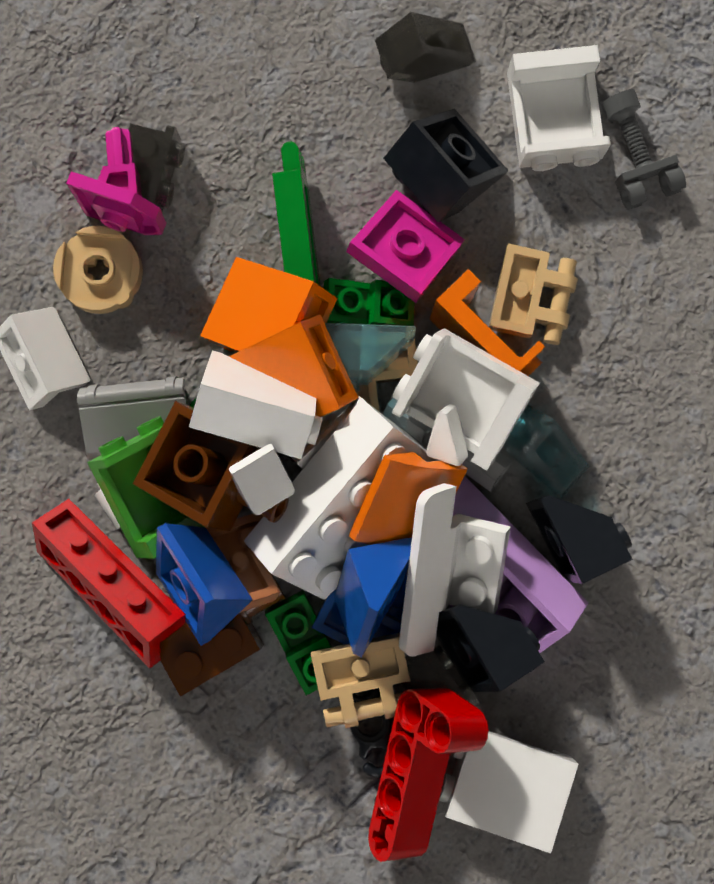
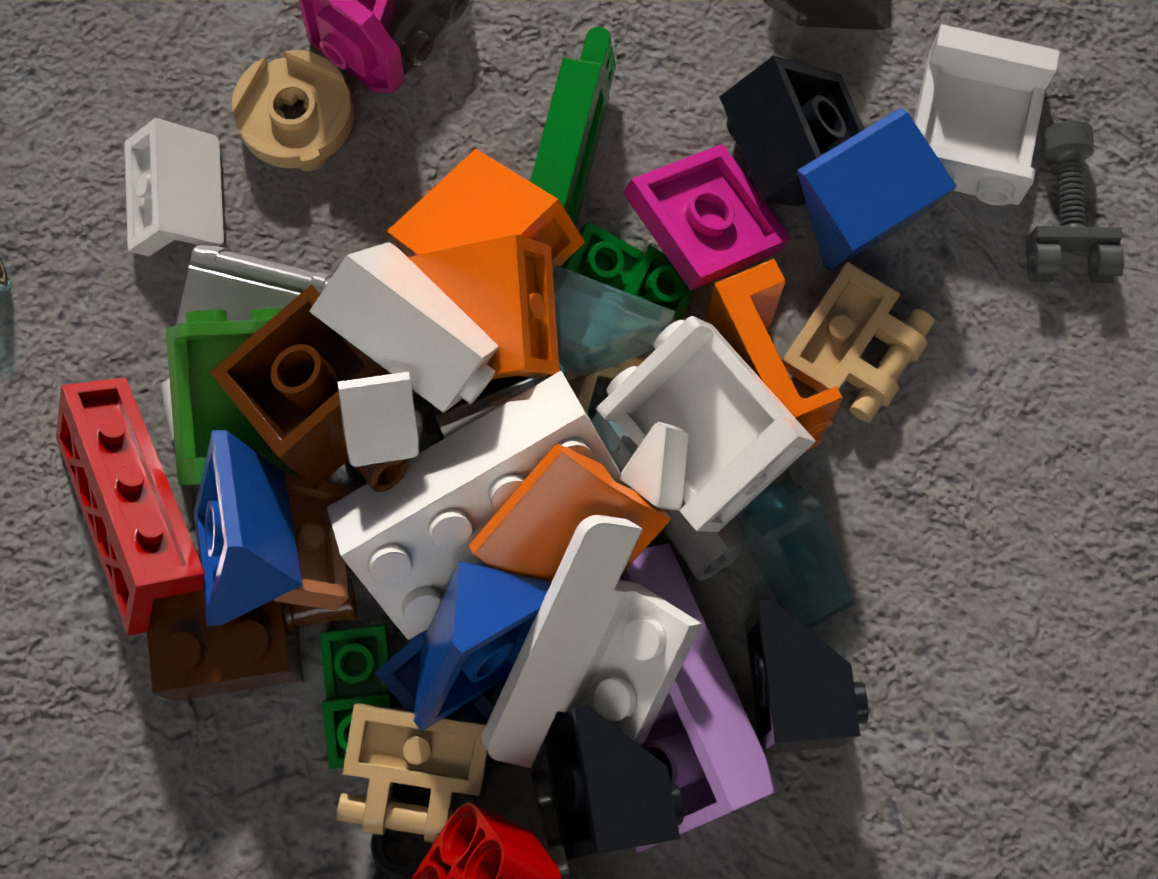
camera: 25 degrees right, 10 degrees down
(509, 189) = (871, 187): none -> blue slope

